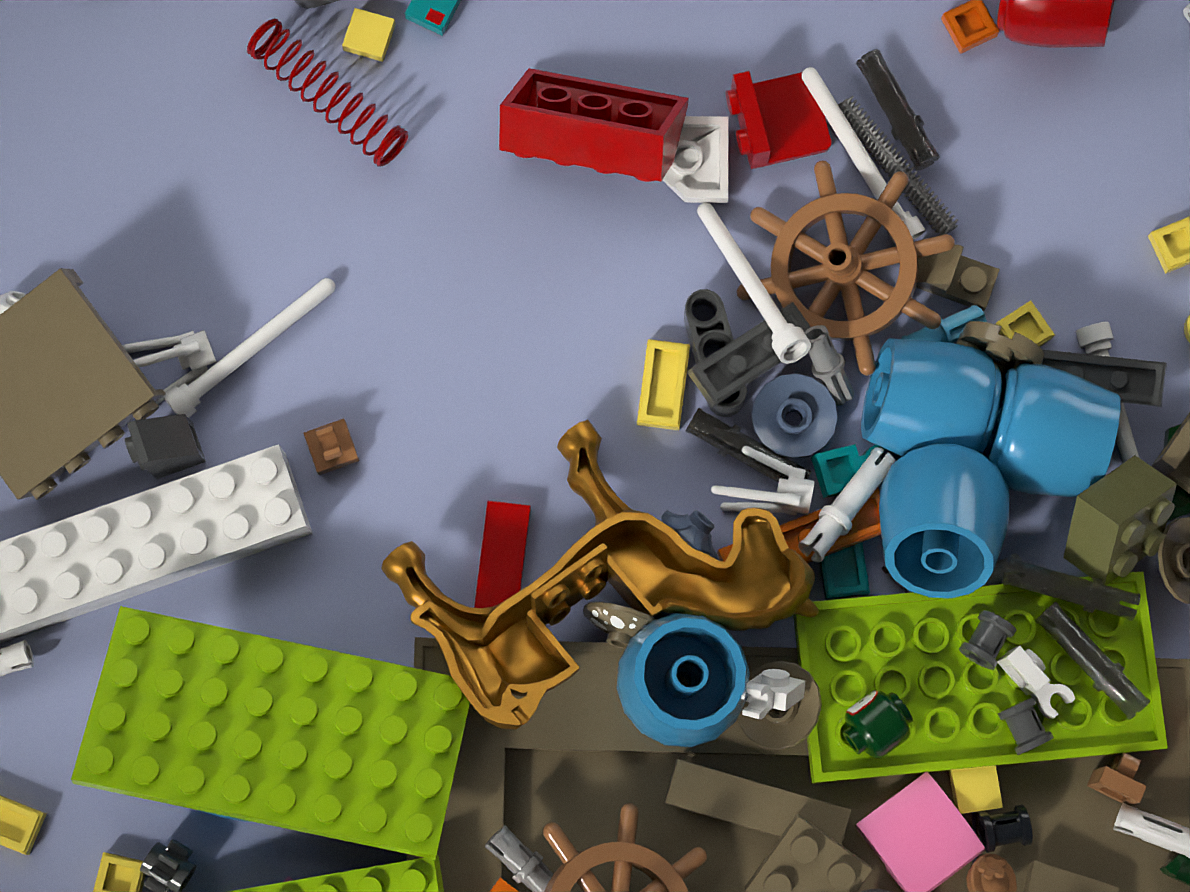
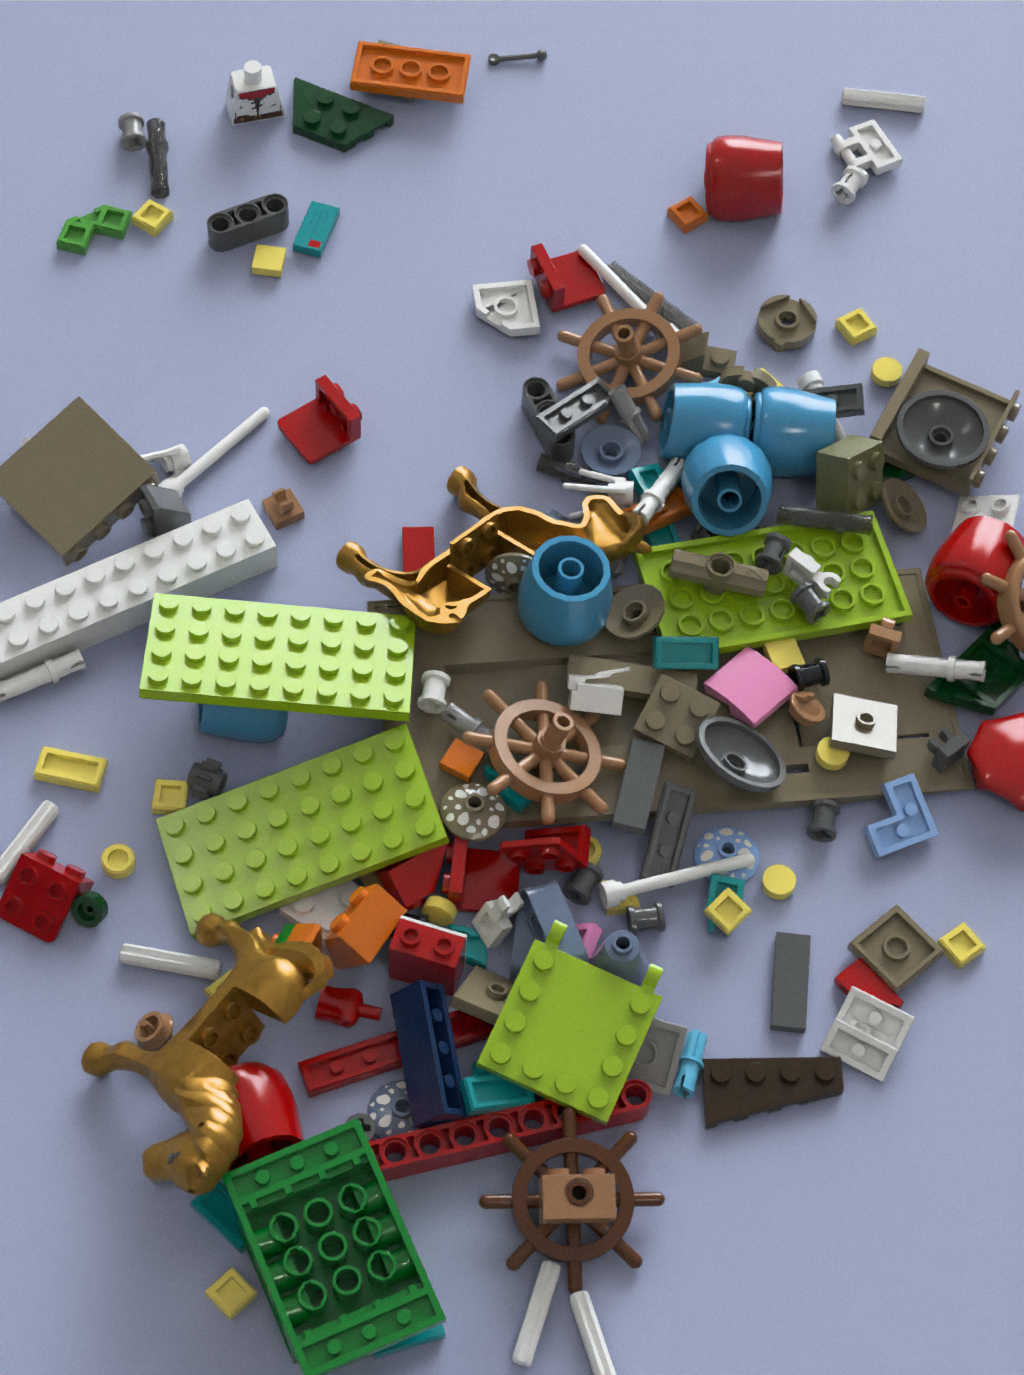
camera: 15 degrees left, 20 degrees down
(267, 46) = (293, 317): red piece -> none
(399, 321) = (322, 423): none -> red bracket
(481, 802) = (433, 692): none -> white bush
(592, 124) = (437, 291): red slope -> none
(663, 384) = (514, 446): light yellow tile -> none
(702, 836) = (595, 696): none -> white piece
(772, 690) = (629, 591): white plate -> none
(788, 341) = (599, 391): white piece -> none
(837, 783) = (685, 652): none -> teal tile
(877, 724) = (706, 610): dark green head -> none
(905, 124) = (655, 274): clear smoke pin -> none
(931, 674) = (733, 575): none -> dark tan piece
(1090, 208) = (786, 336): none -> dark tan plate
(1093, 661) = (859, 568): clear smoke pin -> none

